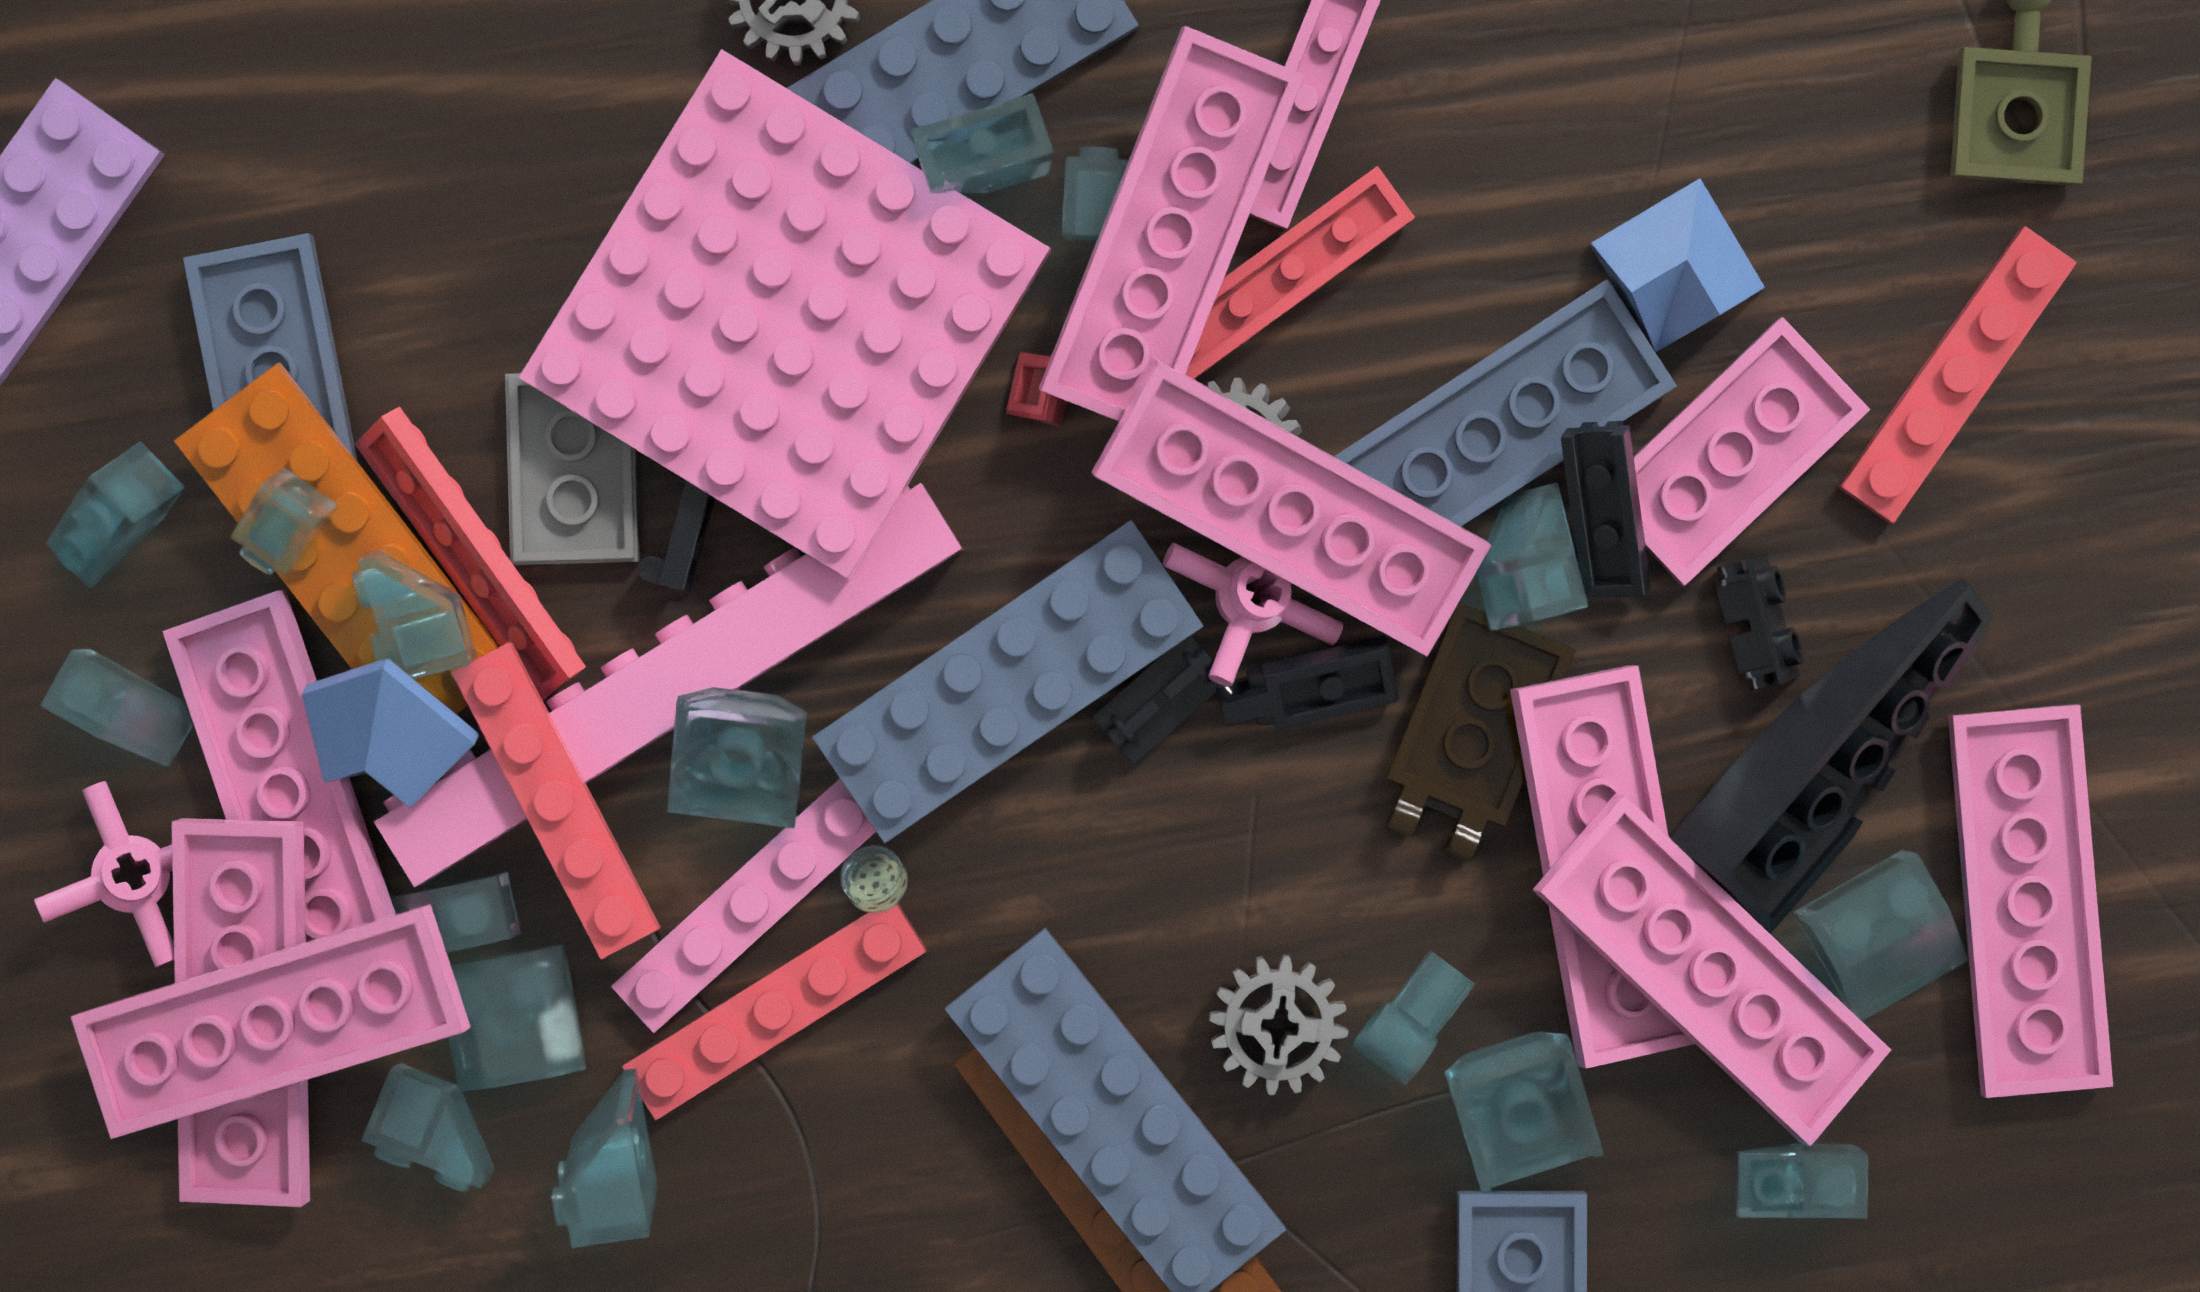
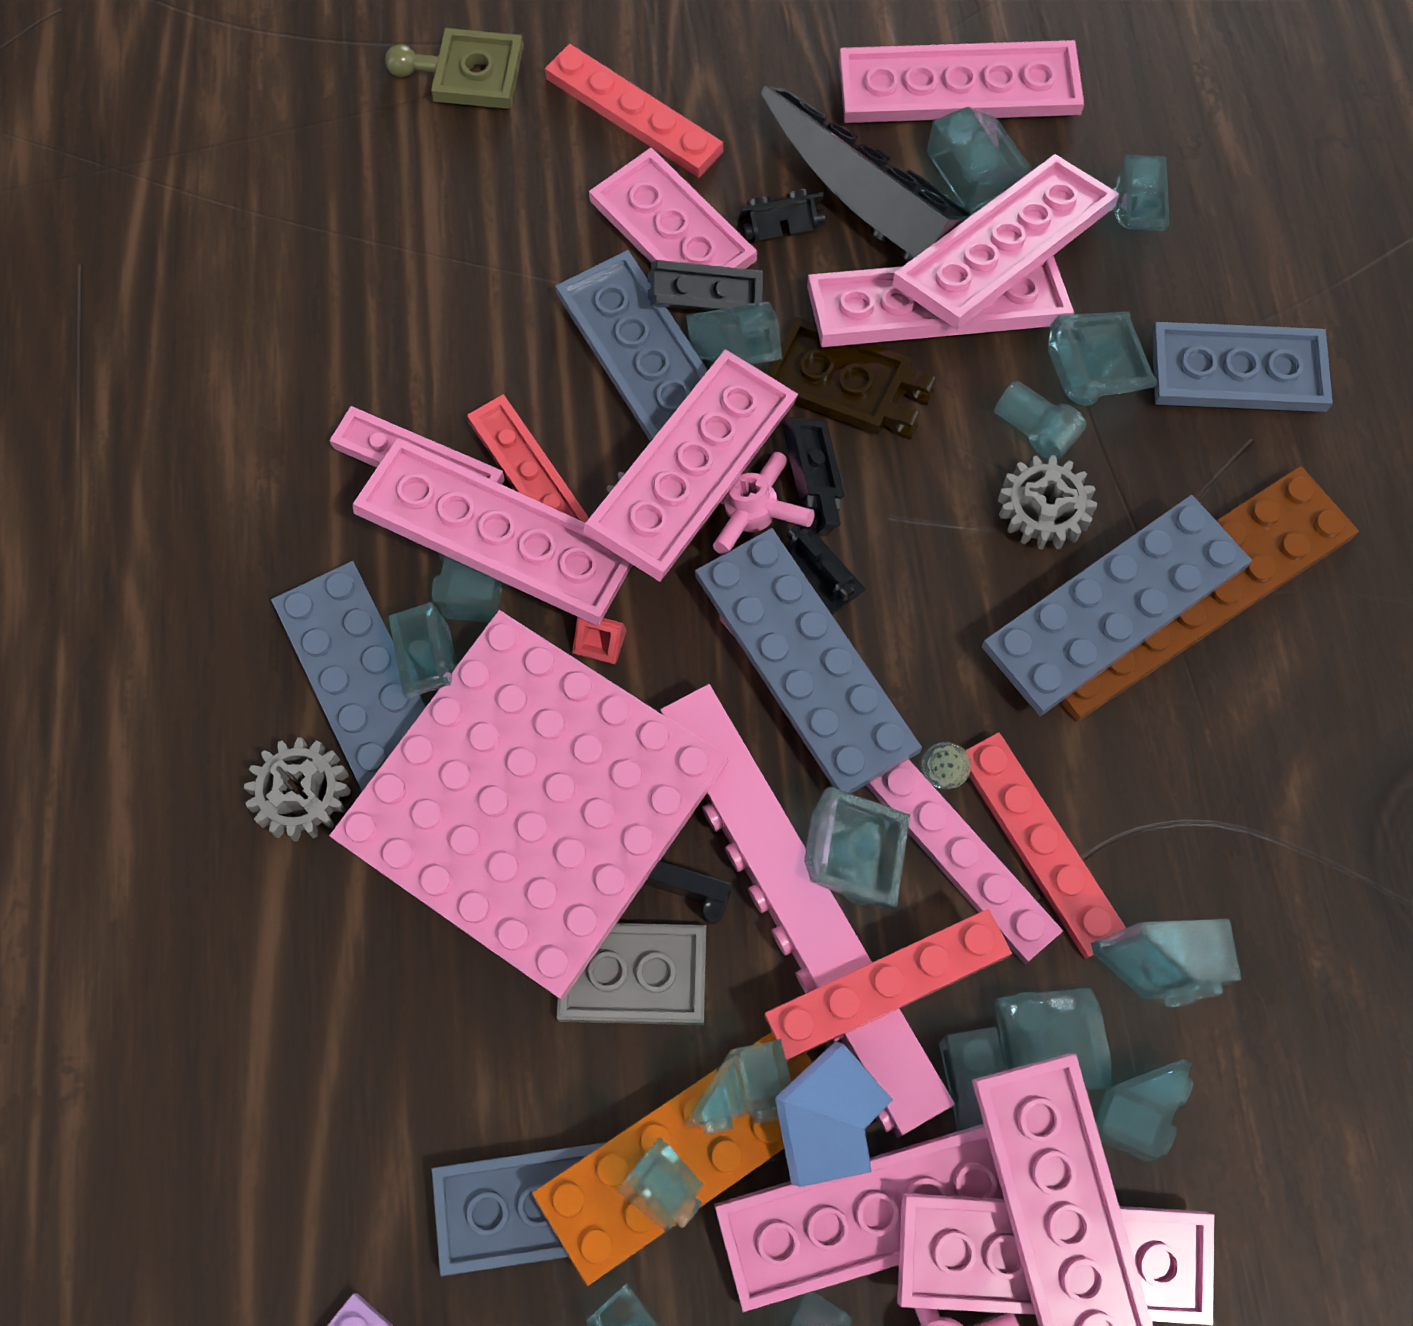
camera: 85 degrees left, 20 degrees down
(468, 550) = (686, 1055): coral plate -> none
(1677, 265) = (550, 253): medium blue slope -> none

